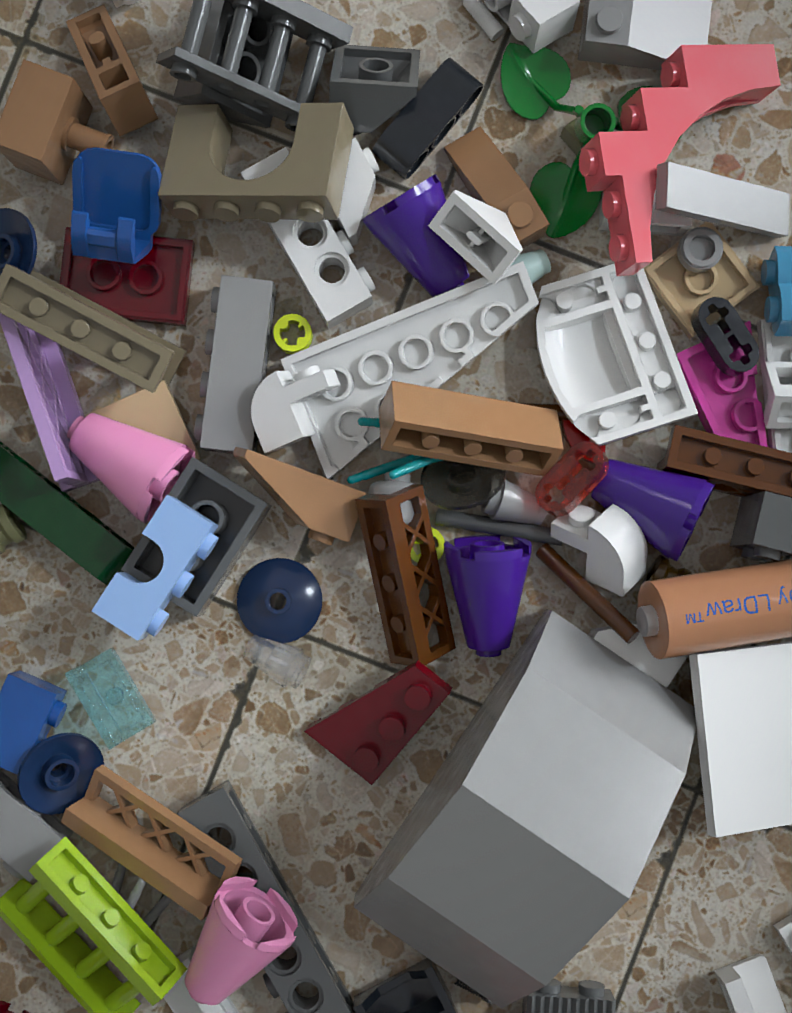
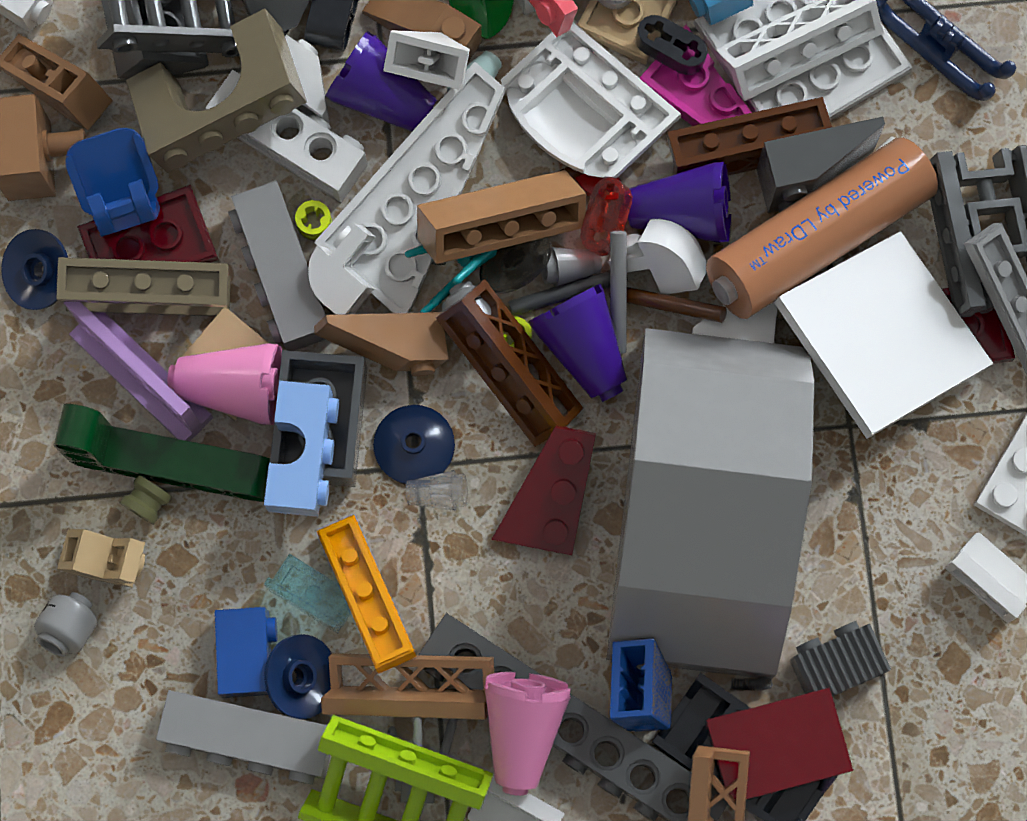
camera: 20 degrees left, 10 degrees down
(158, 729) = (366, 594): none -> light orange tile
(365, 960) = (640, 695): none -> blue torso
(548, 553) = (618, 287): none -> light grey bar

